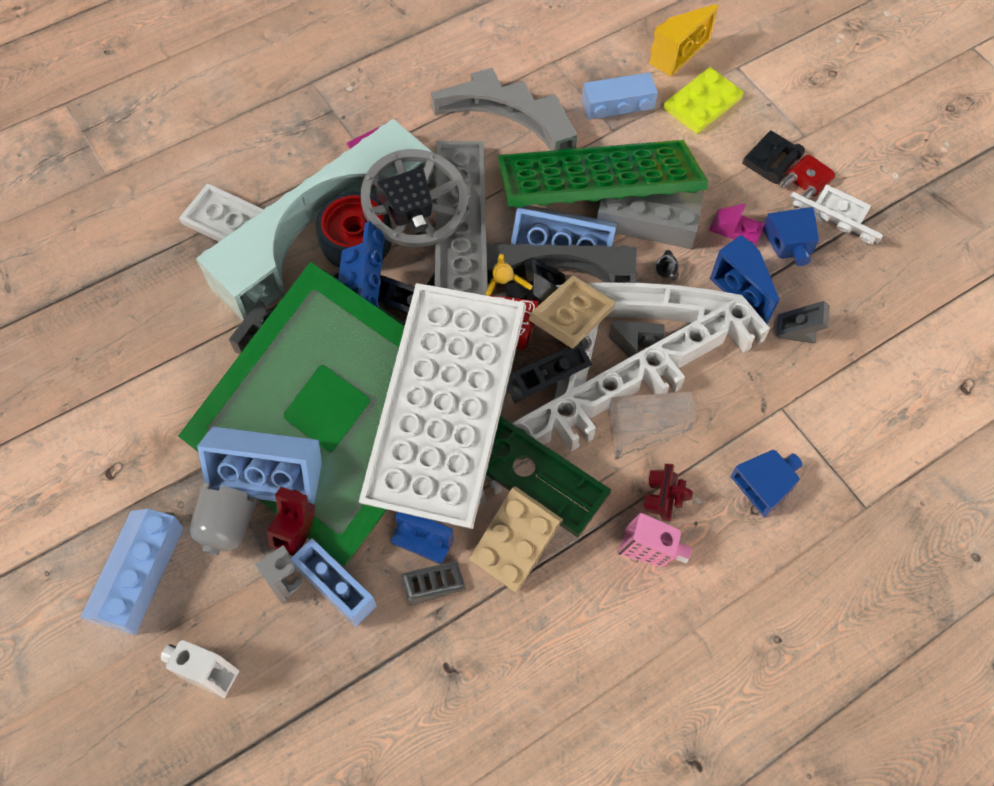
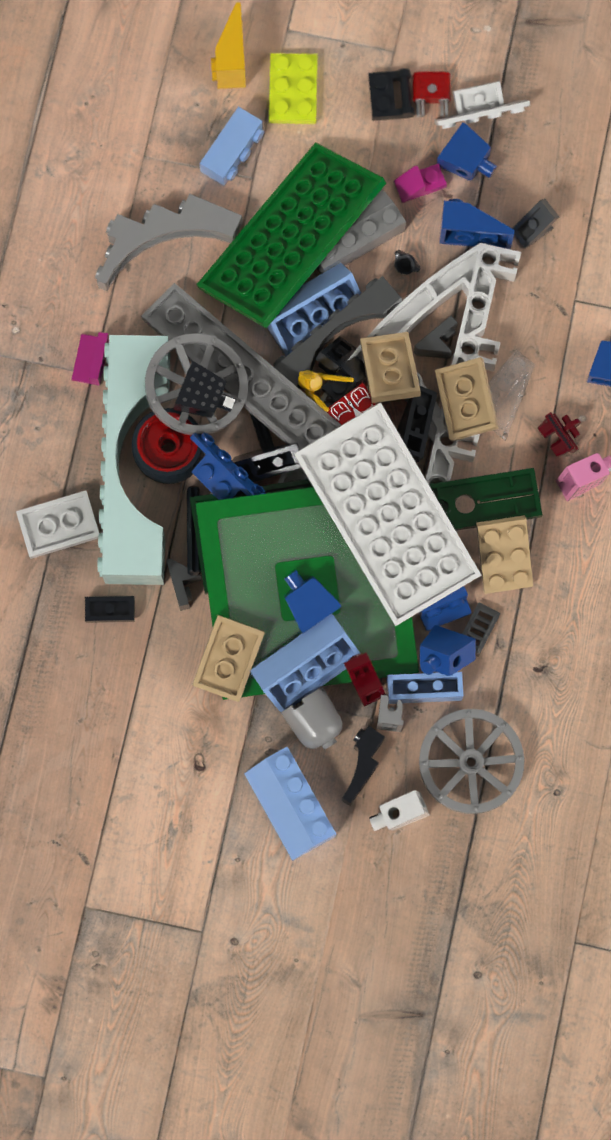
camera: 45 degrees left, 15 degrees up
(187, 301) = (110, 609): none -> black plate
(210, 402) = (228, 658): none -> tan plate
(238, 584) = (366, 744): none -> black slope
(295, 681) = (477, 756): none -> light grey wheel
(312, 414) = (309, 601): none -> blue torso
(379, 568) = (446, 651): none -> blue torso
(610, 388) = (466, 399): none -> tan plate

